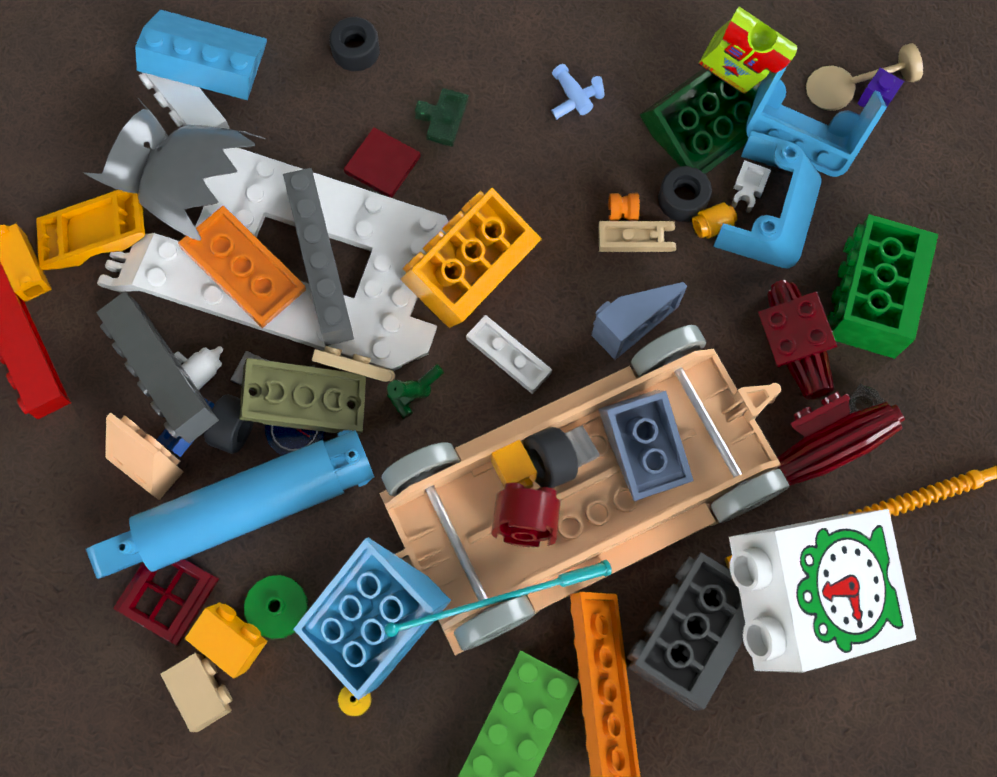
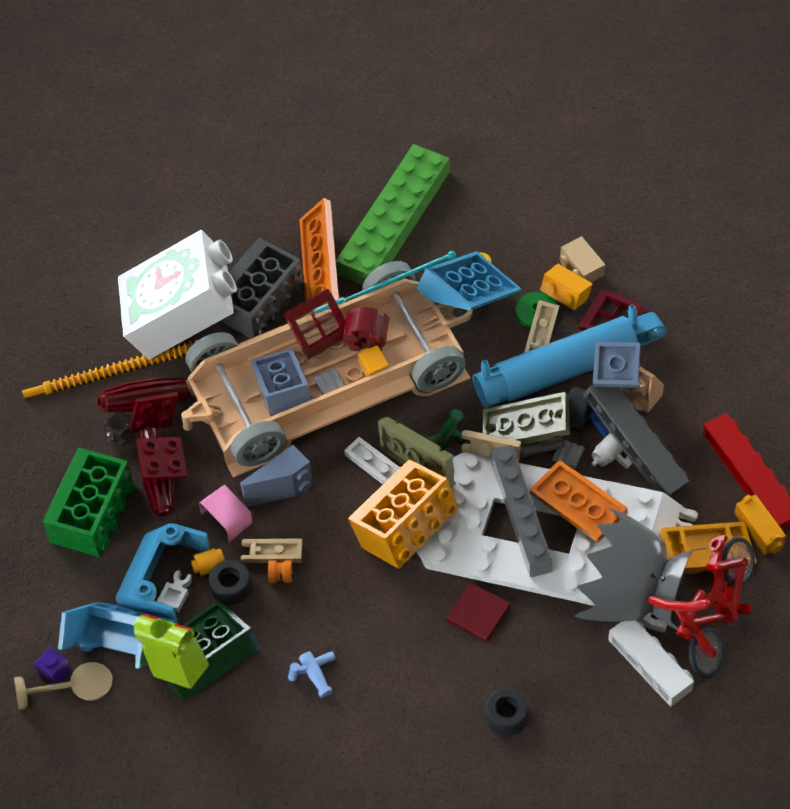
camera: 175 degrees left, 15 degrees down
(75, 156) = (735, 564): none -> red piece
(156, 427) = (617, 364): none -> sand blue plate
(199, 54) = (636, 690): dark azure slope -> none
(269, 564) = (542, 325): none -> tan hinge
(444, 117) = (426, 647): clear green plate -> none
(452, 345) = (404, 444): none -> olive piece
(552, 457) = (347, 365): black tyre -> none
(600, 530) = (316, 323): none -> dark red piece
(704, 279) = (228, 511): none -> bright pink piece

